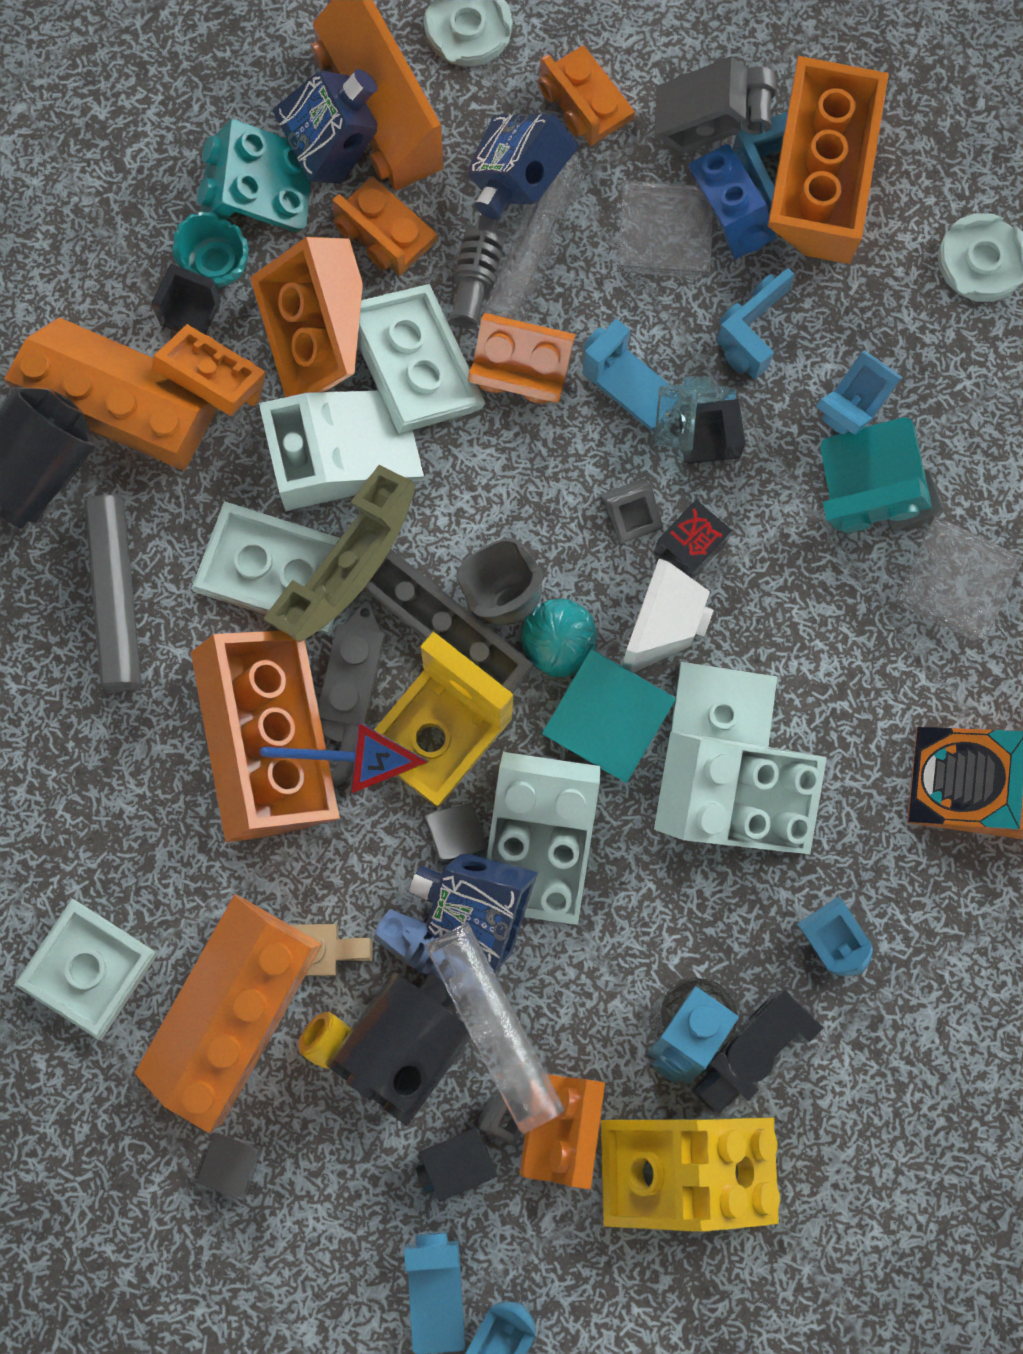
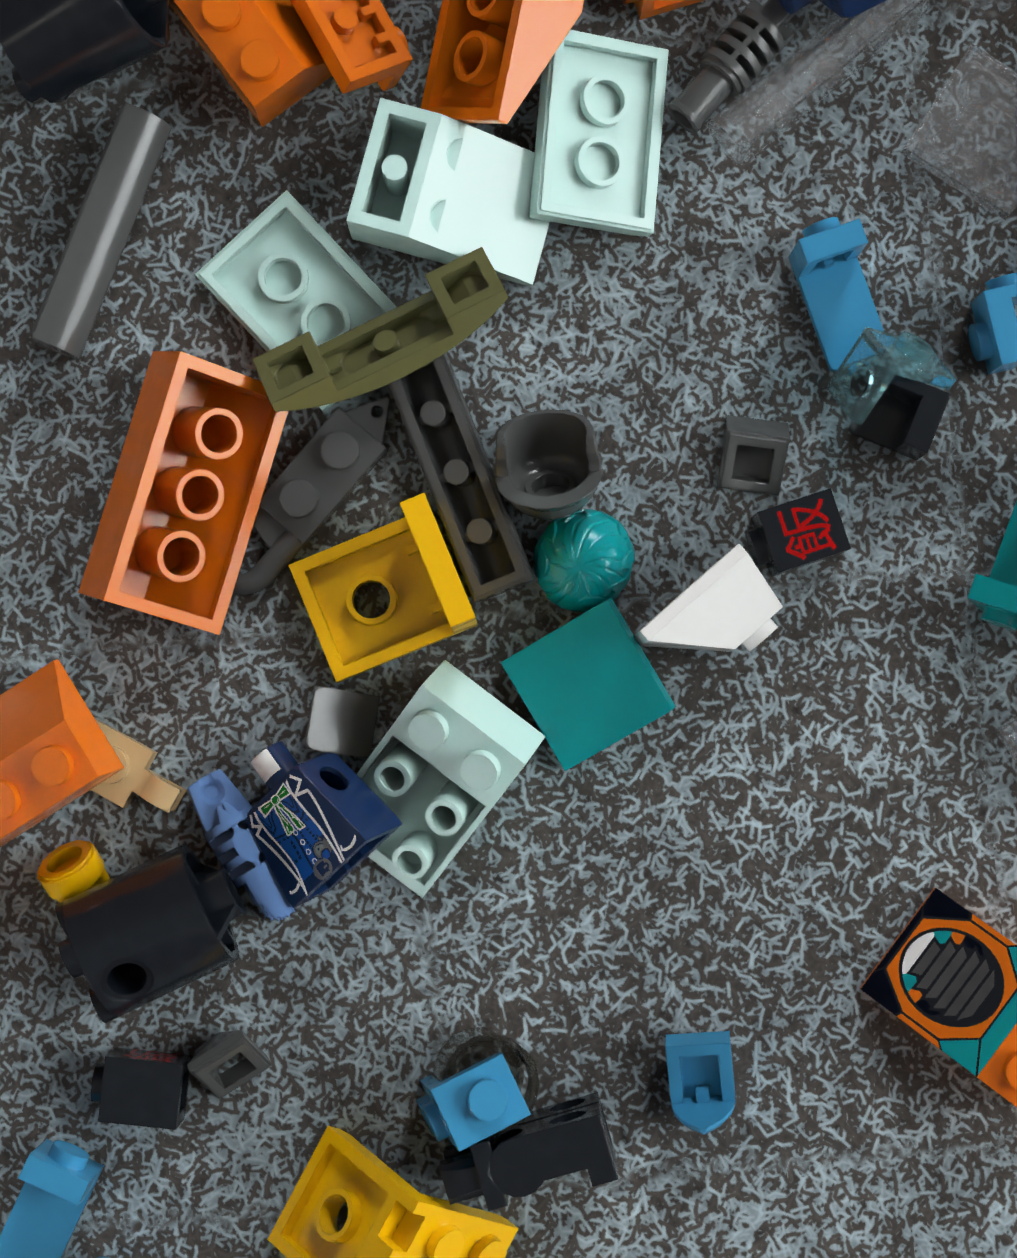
camera: 30 degrees right, 10 degrees up
(374, 757) = (291, 590): piece -> none
(495, 1028) = (256, 971): clear brick -> none
(521, 359) = (723, 203): orange bracket -> none
(567, 1144) = (276, 1116): orange bracket -> none
(724, 704) = (717, 754): light aqua plate -> none
(739, 794) = (682, 856): light aqua slope -> none

